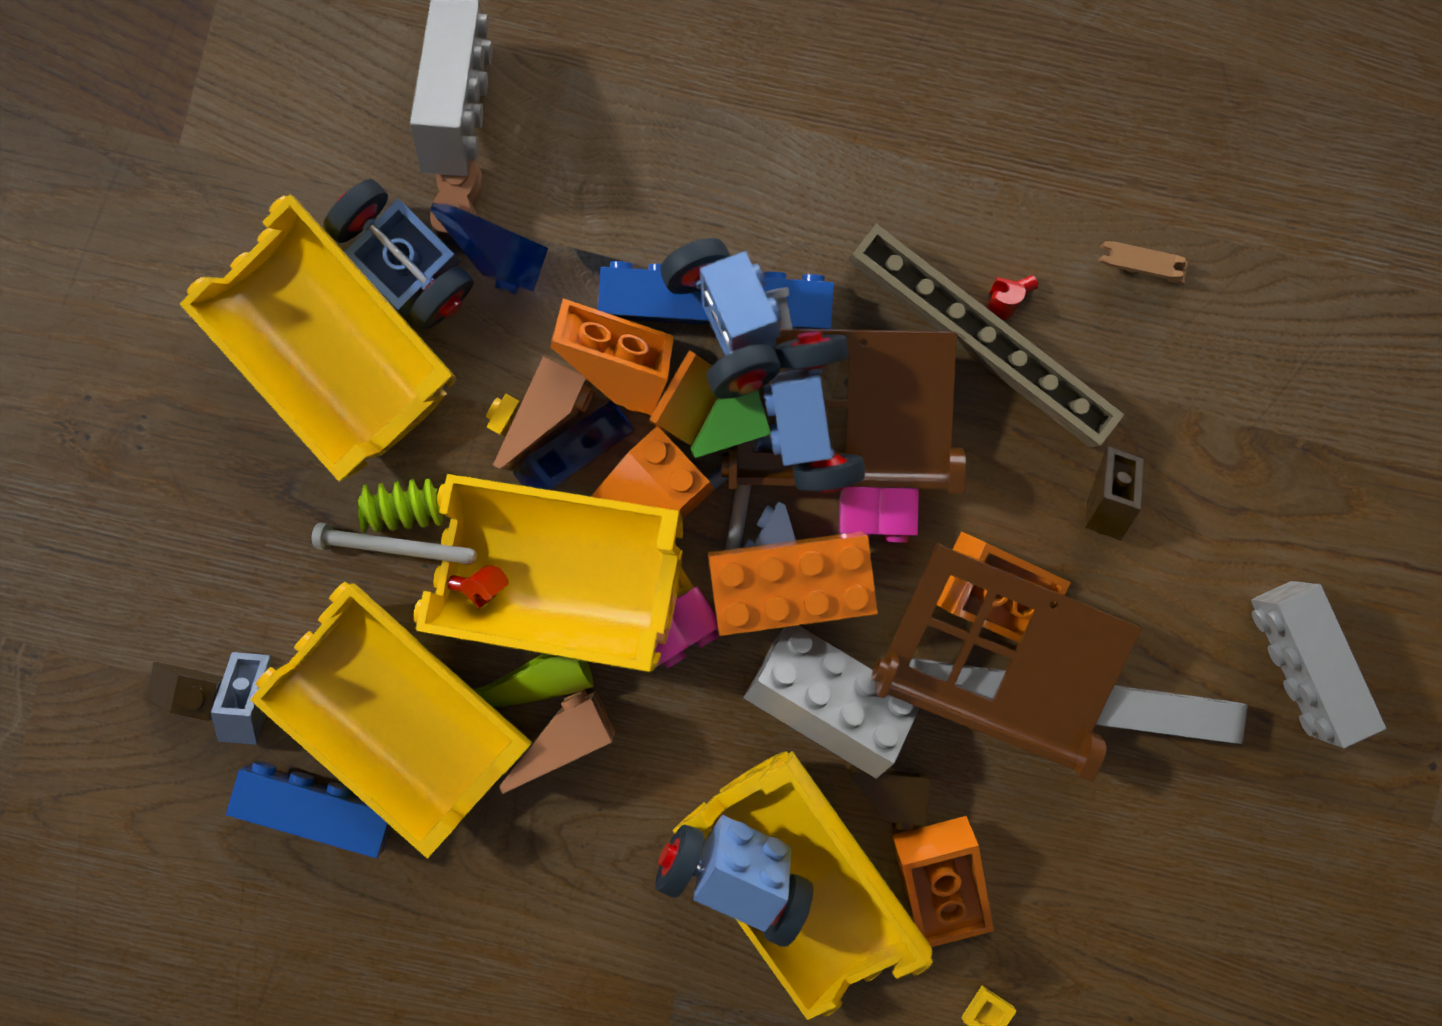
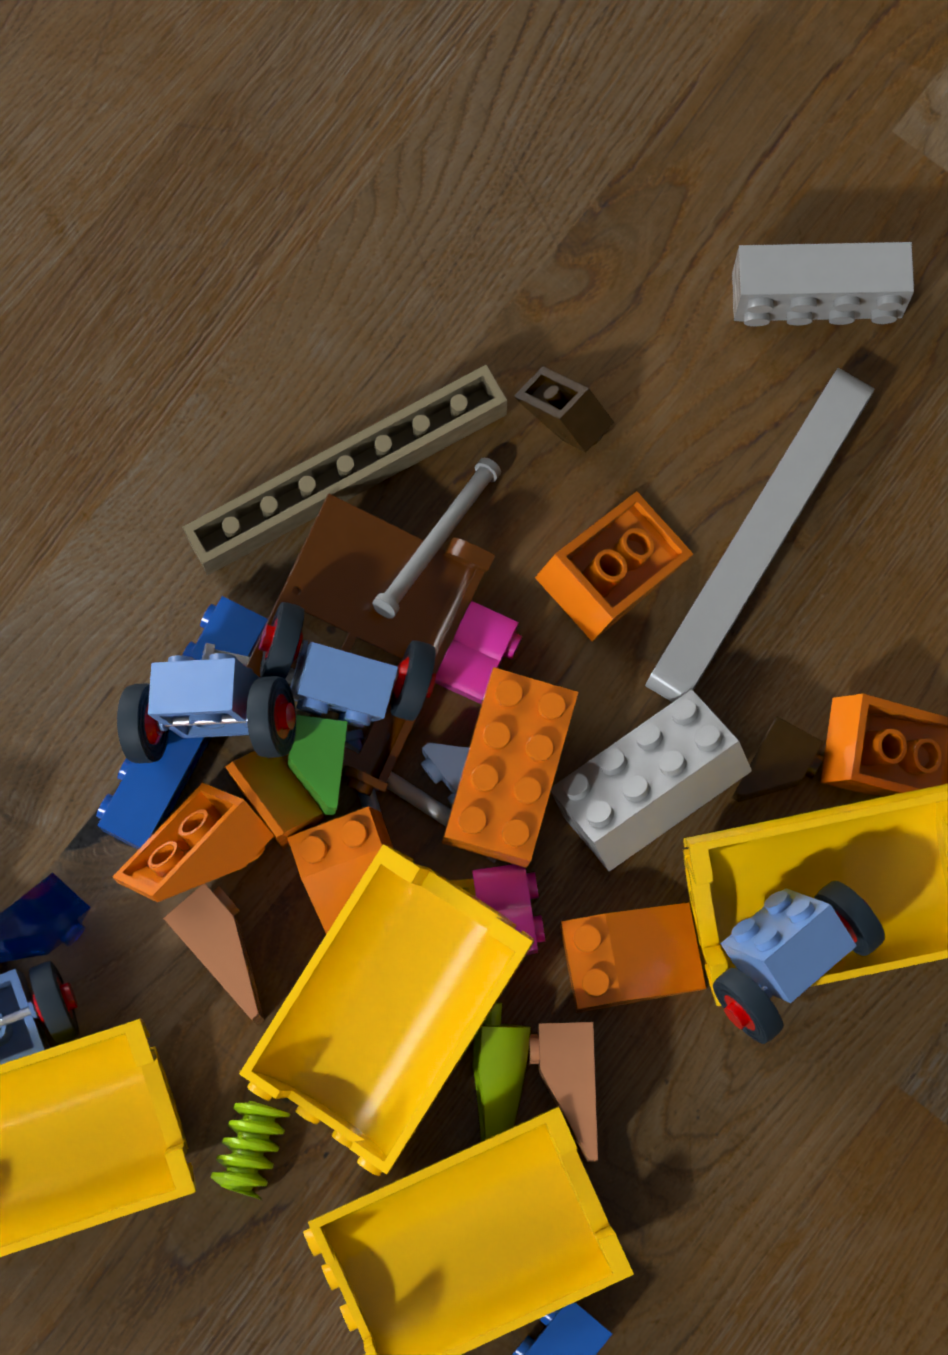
camera: 65 degrees left, 10 degrees down
(324, 536) = (247, 1244): light grey bar -> none
(481, 585) = (371, 1094): red piece -> none
(502, 414) = (202, 997): yellow plate -> none
(574, 449) = (272, 936): clear blue slope -> none
(684, 742) = (632, 956): none -> orange slope
(884, 423) = (388, 603): none -> light grey bar
(1008, 295) = (314, 427): red piece -> none
(1054, 675) = (726, 548): reddish brown door -> none
(1145, 261) = (342, 281): medium nougat piece -> none

